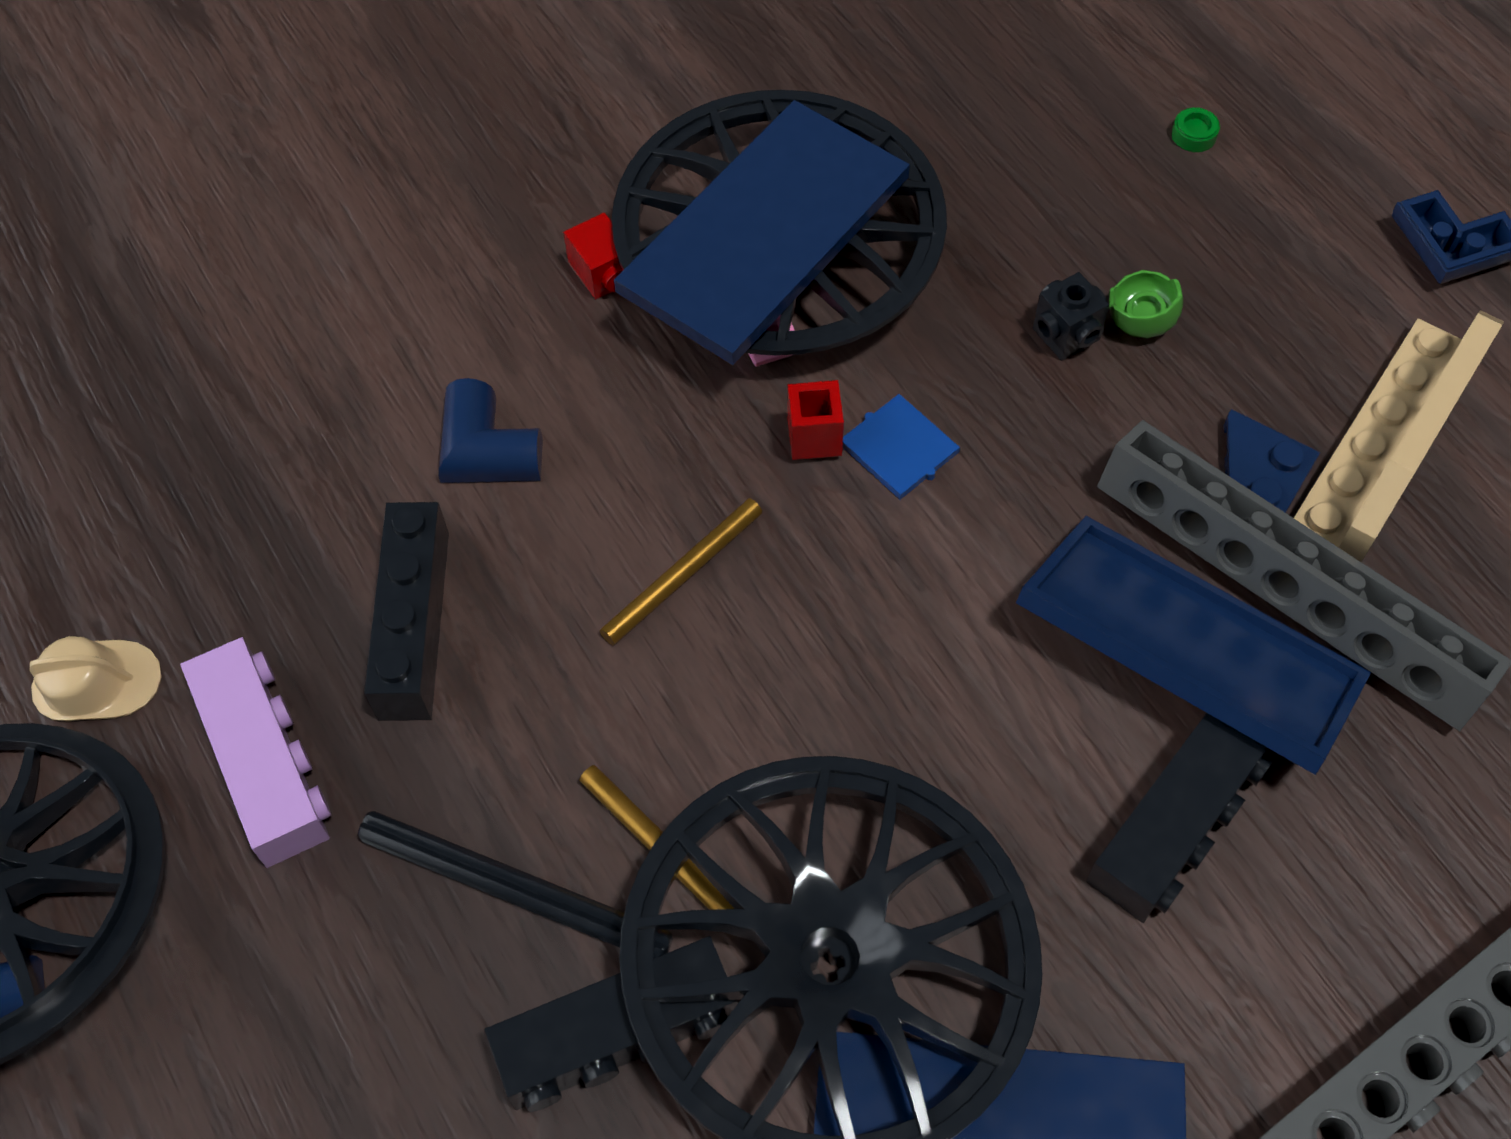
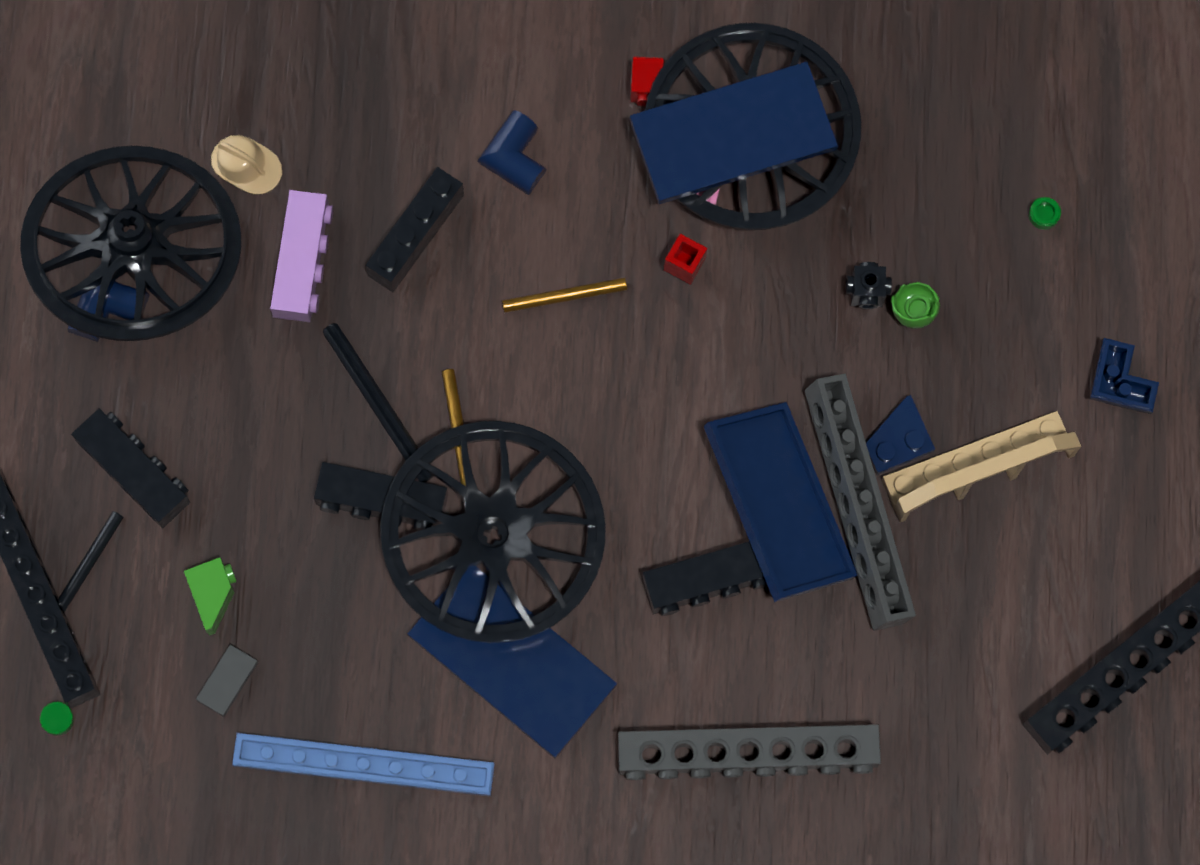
camera: 30 degrees right, 15 degrees up
(899, 446) = (725, 298): blue piece -> none

